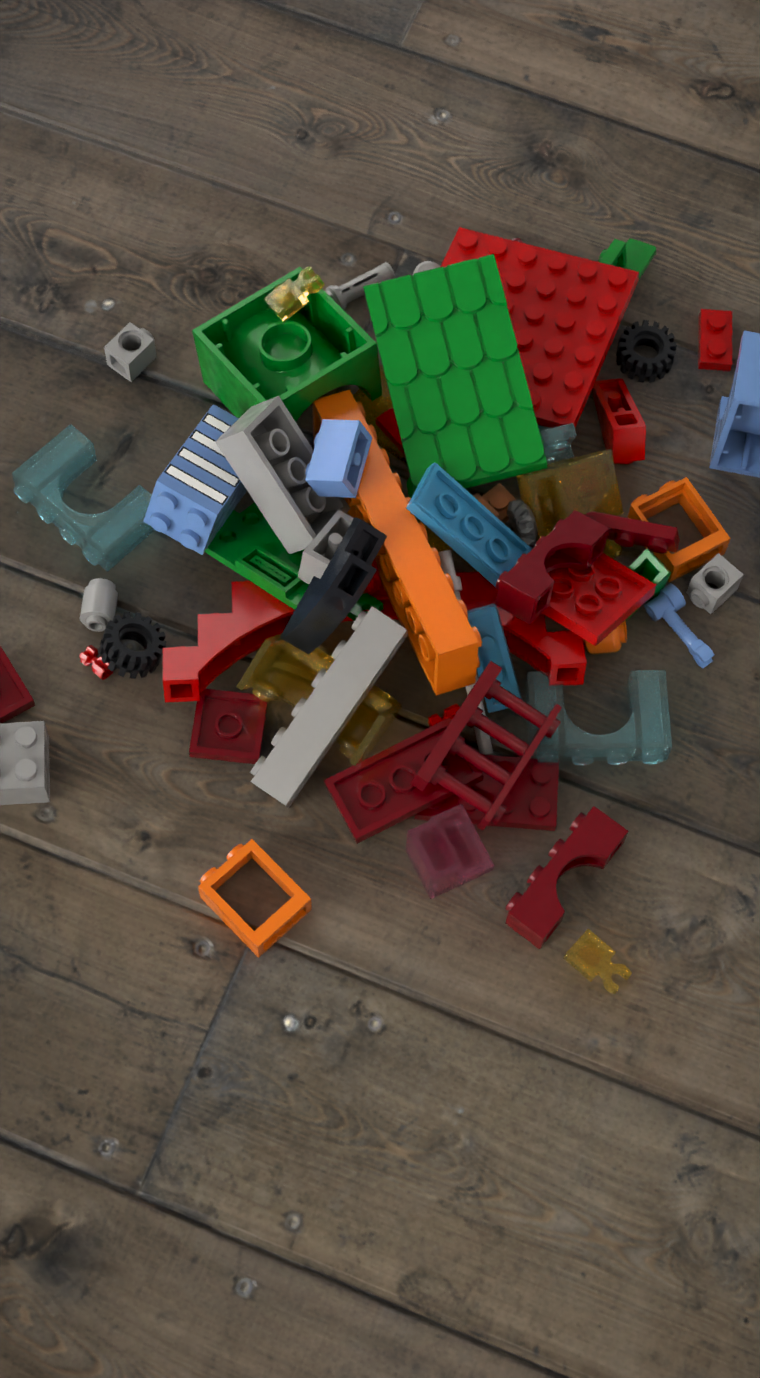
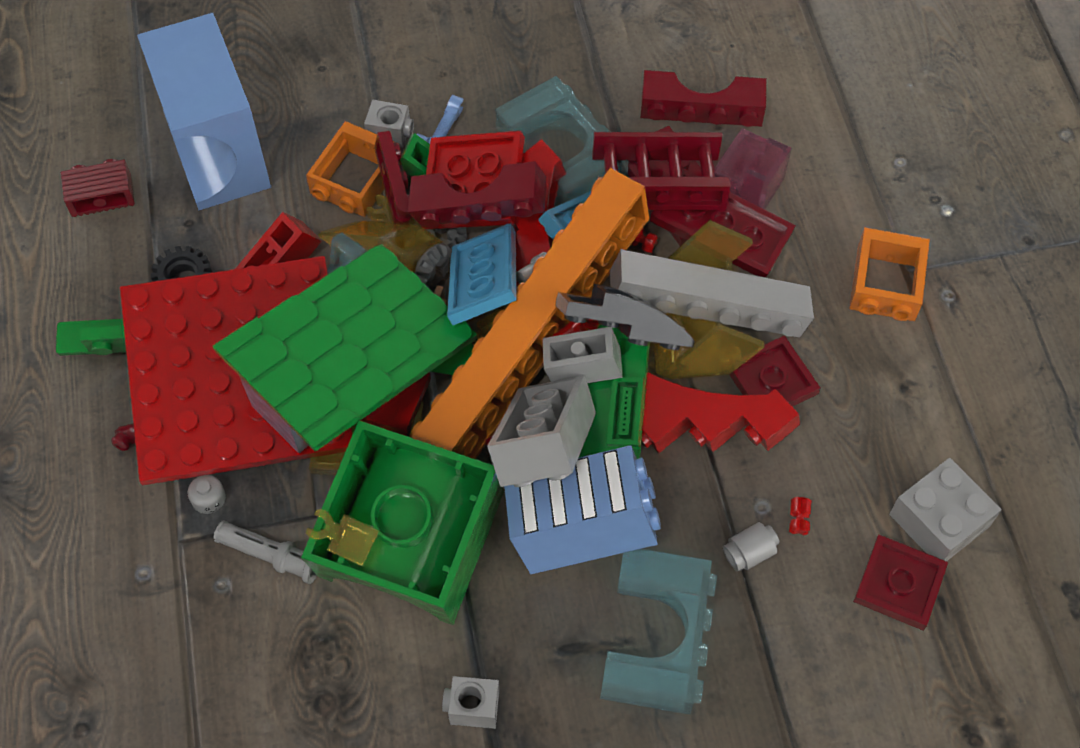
camera: 120 degrees left, 5 degrees down
(126, 659) = (766, 471): black tyre -> none
(338, 458) = (505, 380): medium blue brick -> none
(593, 957) = (746, 56): clear yellow plate -> none
(715, 340) = (134, 238): red plate -> none

